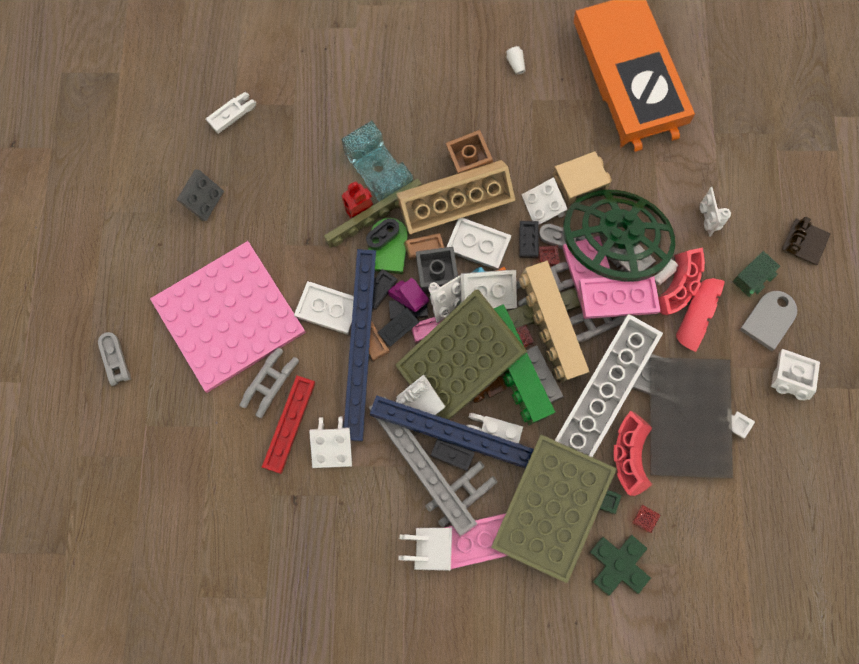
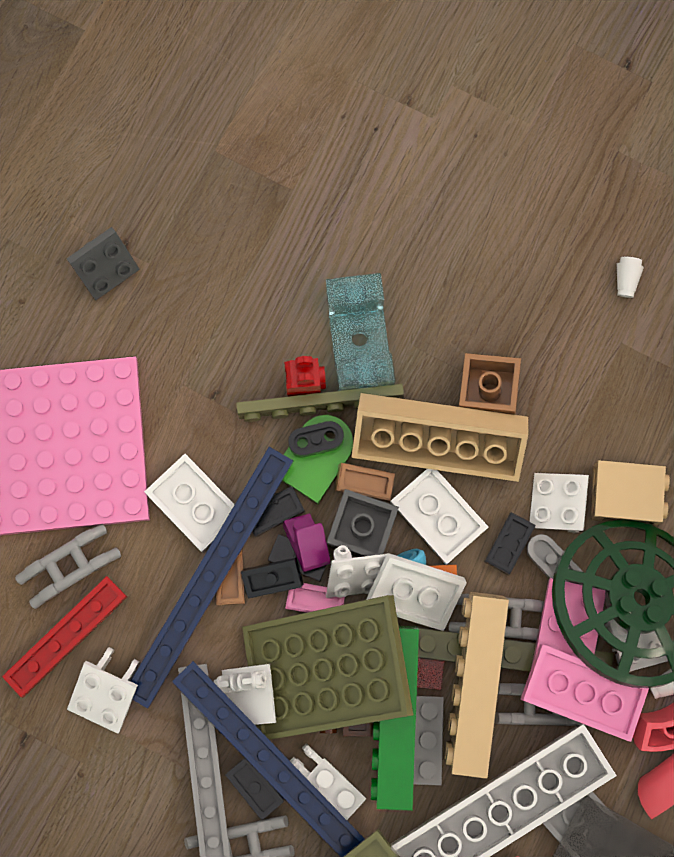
camera: 25 degrees right, 5 degrees up
(230, 112) = (201, 161): white hinge -> none
(549, 253) = (524, 581): clear red plate -> none

